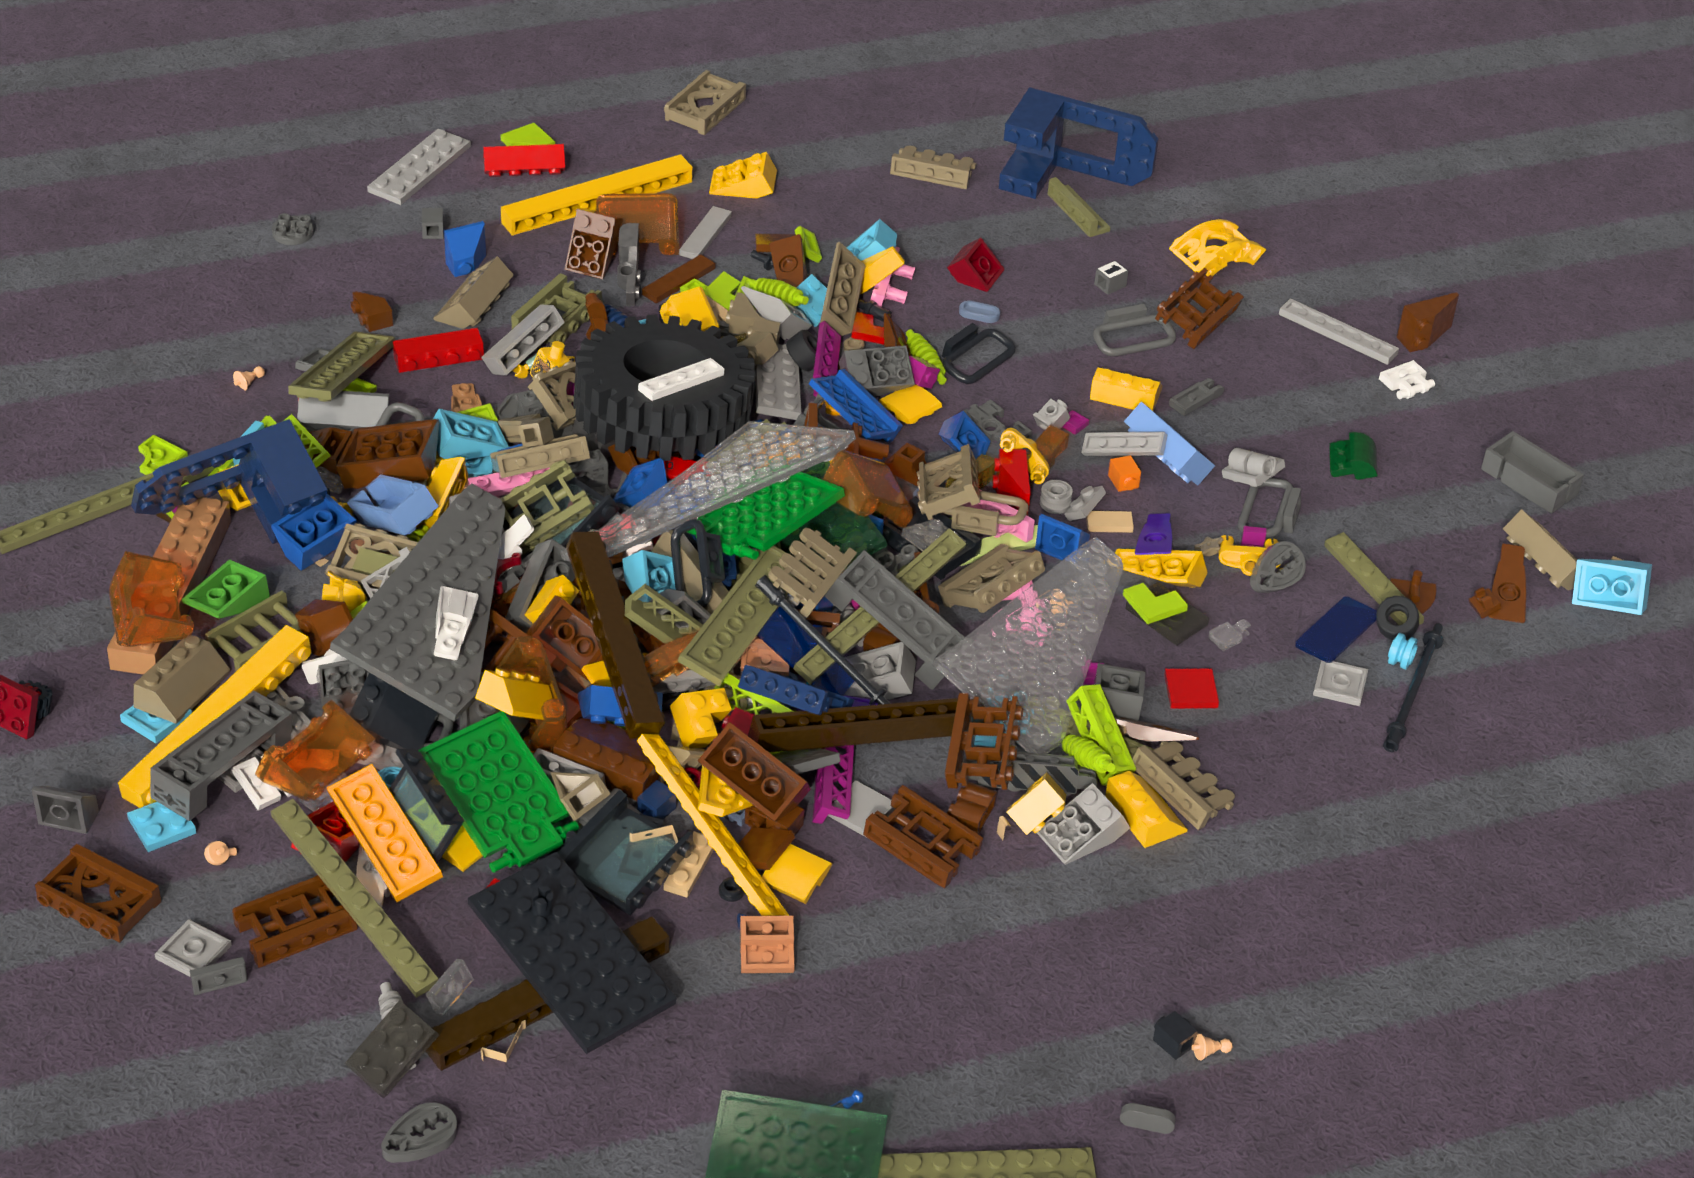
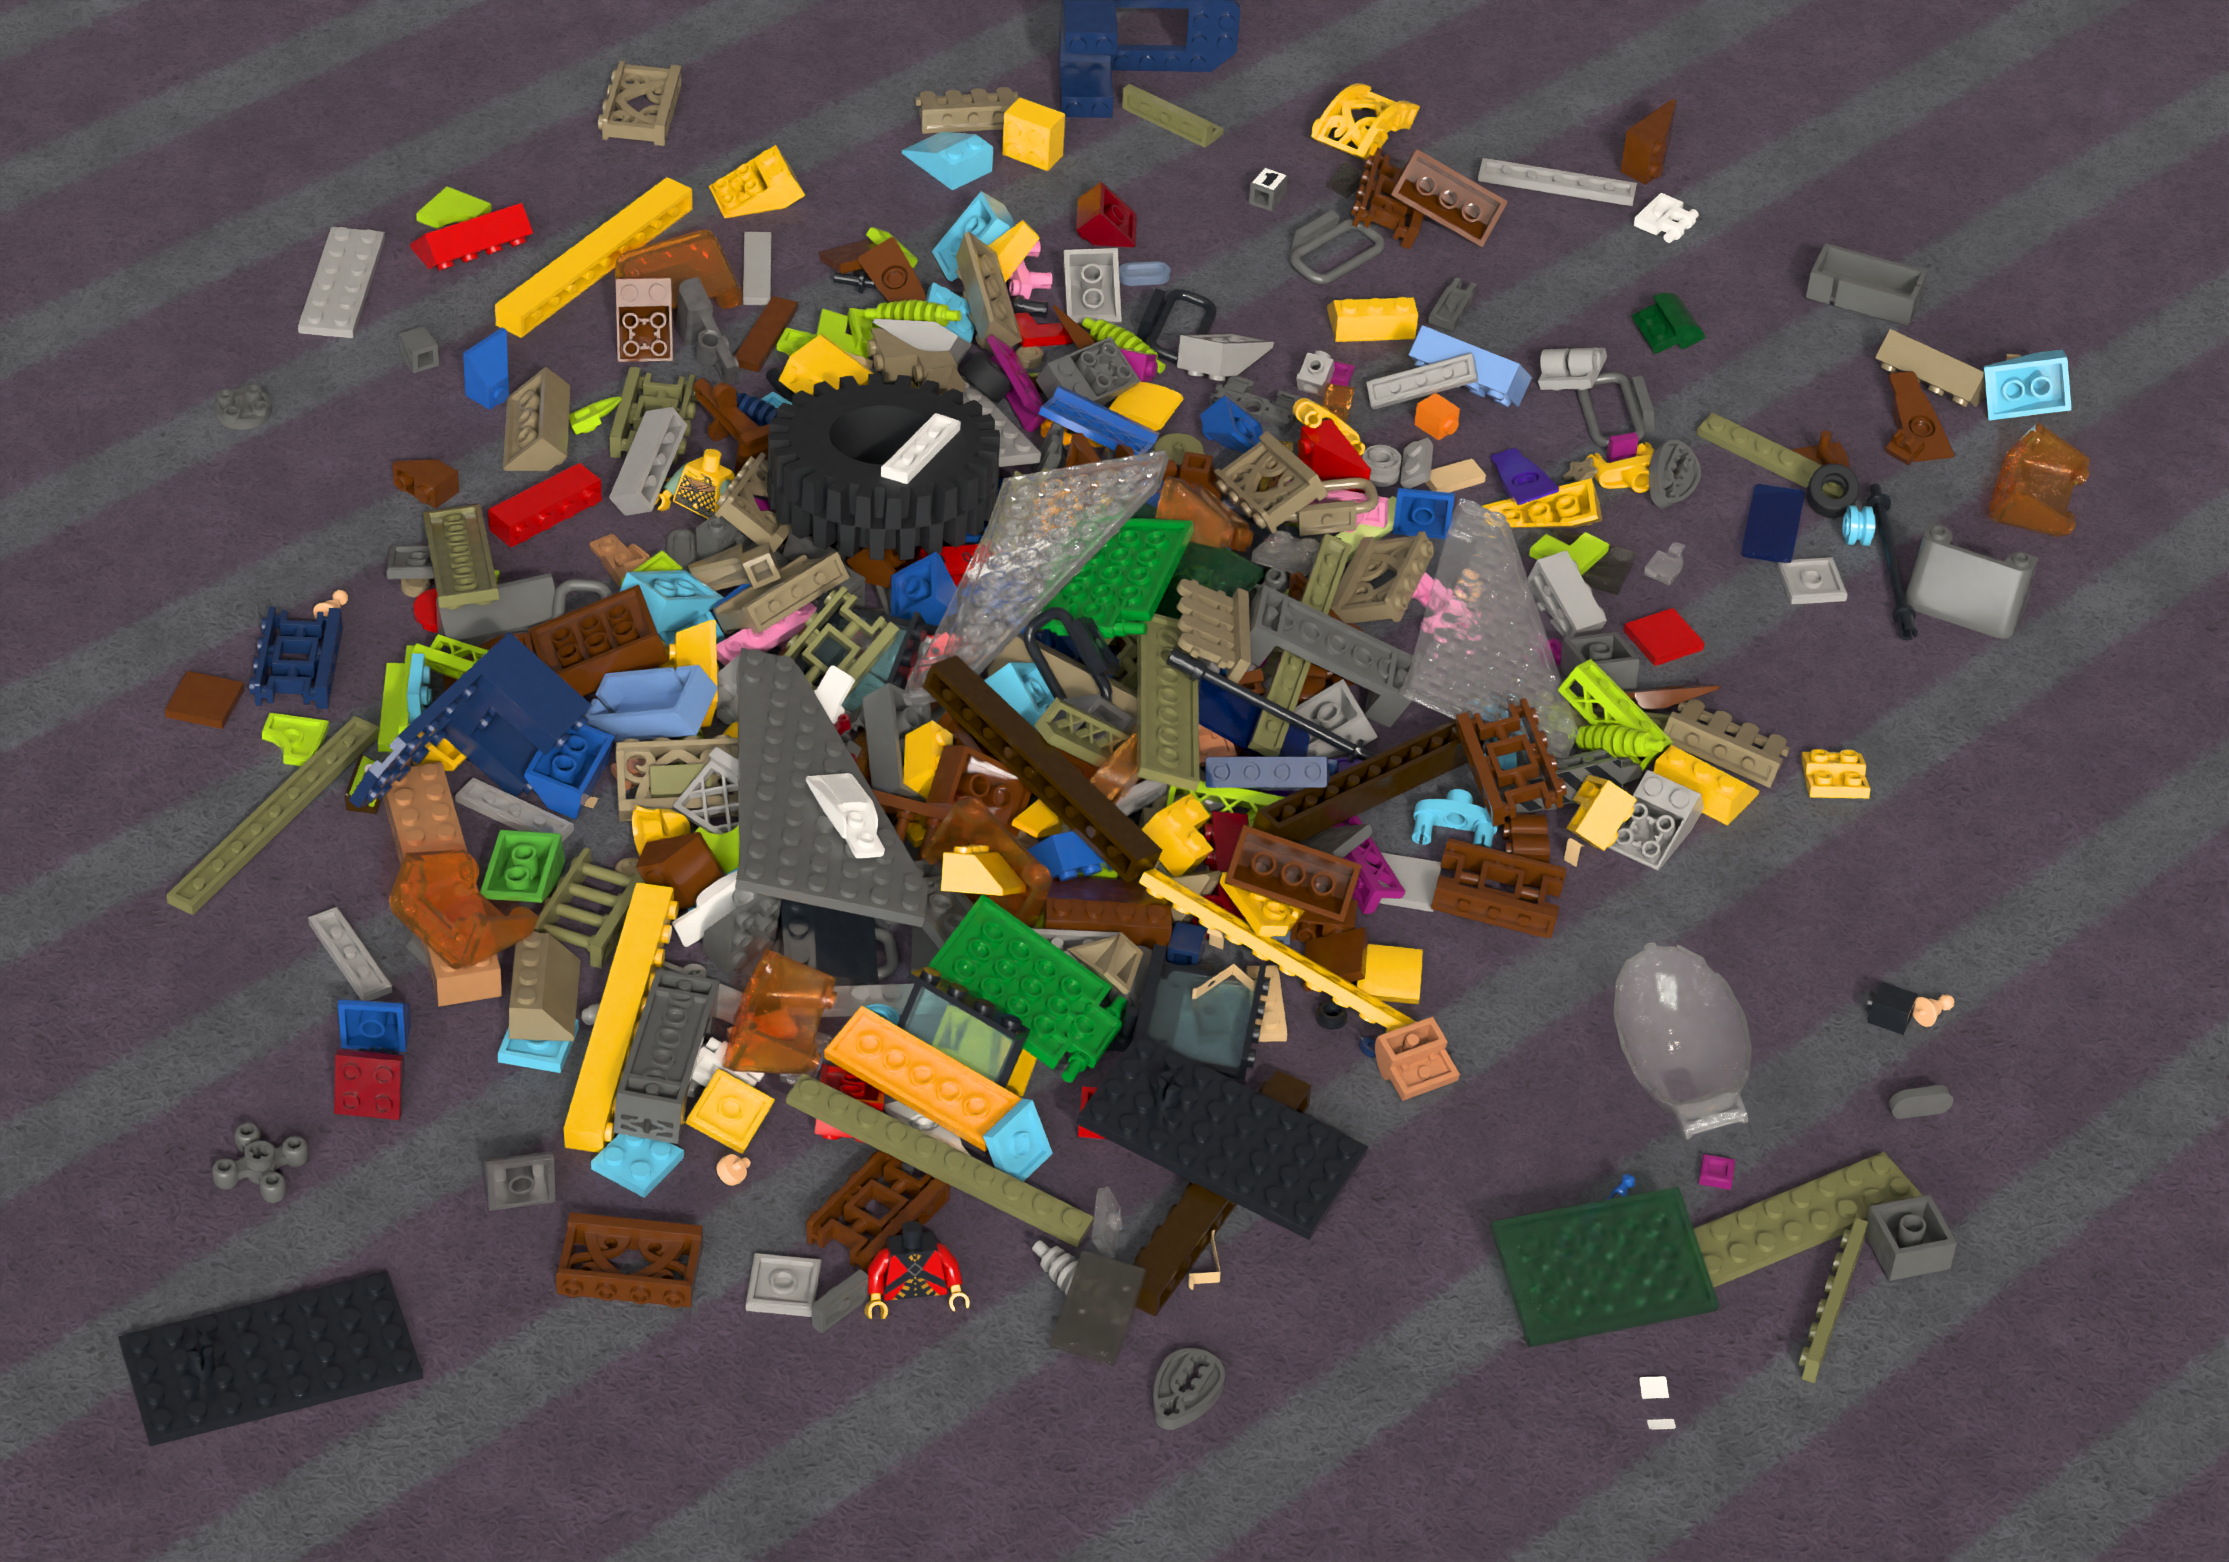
camera: 25 degrees left, 0 degrees up
(53, 666) = (374, 1024): none -> blue slope
(81, 615) = (350, 954): none -> light grey tile
(120, 413) = (204, 699): none -> reddish brown tile
(209, 413) = (294, 675): none -> dark blue fence
(243, 810) = (730, 1111): none -> yellow tile
(263, 553) = (511, 810): none -> light grey tile
(282, 970) = (912, 1268): none -> torso
(422, 905) = (1018, 1141): none -> medium azure plate
(511, 300) = (589, 417): none -> lime plate
(896, 196) = (952, 157): none -> medium azure slope
(917, 438) = (1176, 445): none -> olive piece
(929, 768) = (1453, 812): none -> medium azure connector
(931, 308) = (1092, 285): none -> light grey slope
(946, 1115) = (1717, 1171): none -> magenta tile
(960, 193) = (1033, 134): none -> yellow brick
(970, 999) = (1683, 1037): none -> clear windscreen
(990, 382) = (1219, 354): none -> light grey slope
(1128, 633) = (1565, 596): none -> light grey wedge
(1173, 284) = (1345, 180): none -> clear smoke slope
(1236, 319) = (1448, 198): none -> reddish brown slope
(1257, 836) = (1835, 774): none -> yellow slope
(1459, 727) = (1969, 585): none -> windscreen
(1576, 664) = (2038, 483): none -> clear orange windscreen

